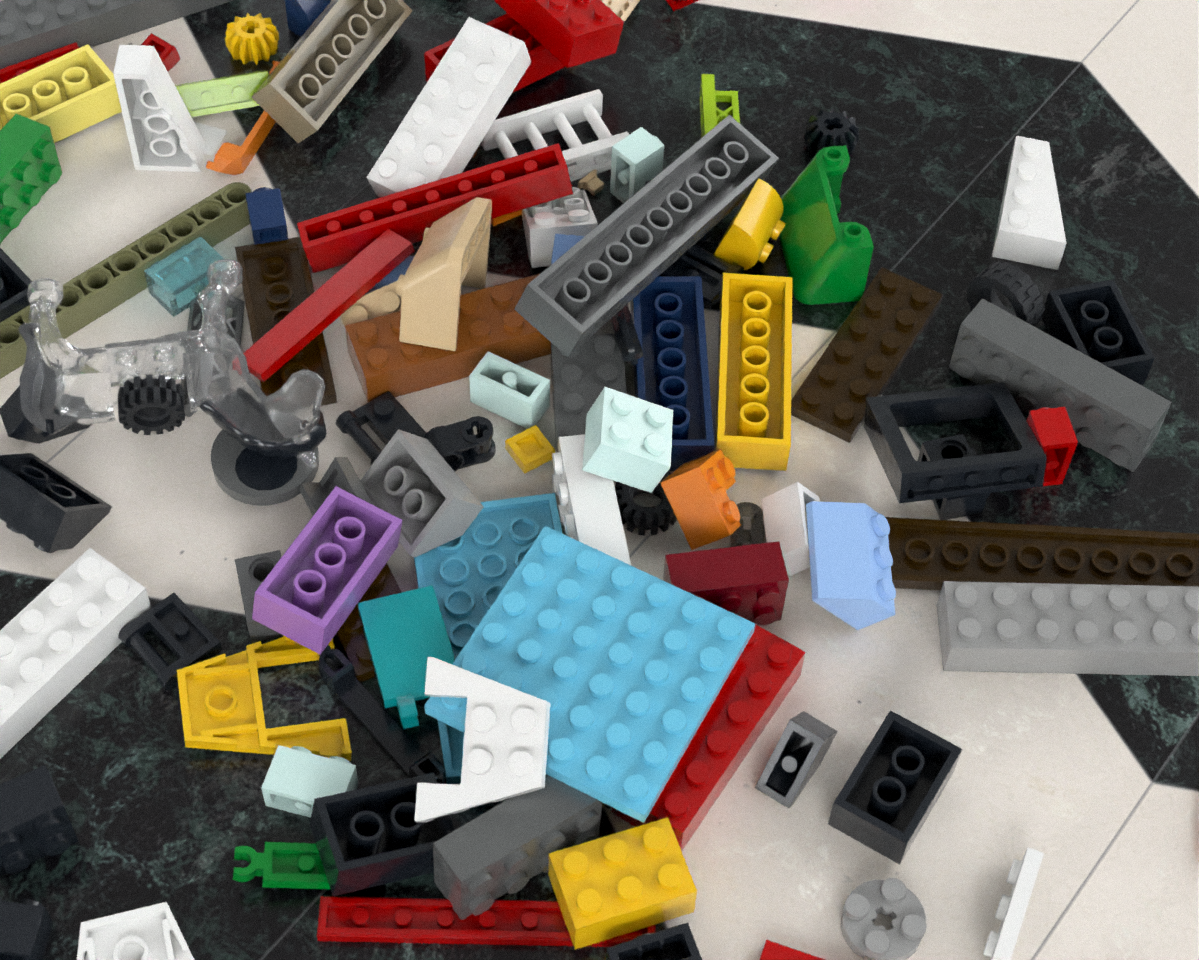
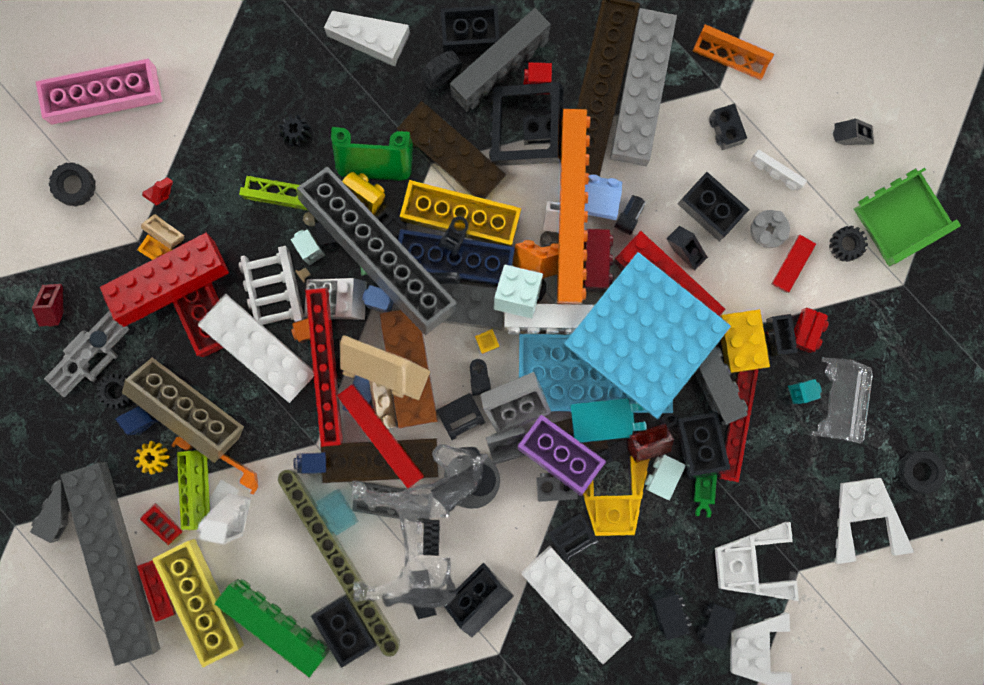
camera: 80 degrees left, 30 degrees up
(375, 737) = (650, 443): none -> clear red brick
(501, 742) = (687, 385): white wing -> none
(509, 390) = (452, 345): light aqua brick -> none
(712, 345) = (453, 236): none -> black piece
(812, 509) = (572, 205): none -> orange brick
(831, 646) = (629, 217): none -> black piece
(1078, 804) = (733, 126): none -> black brick

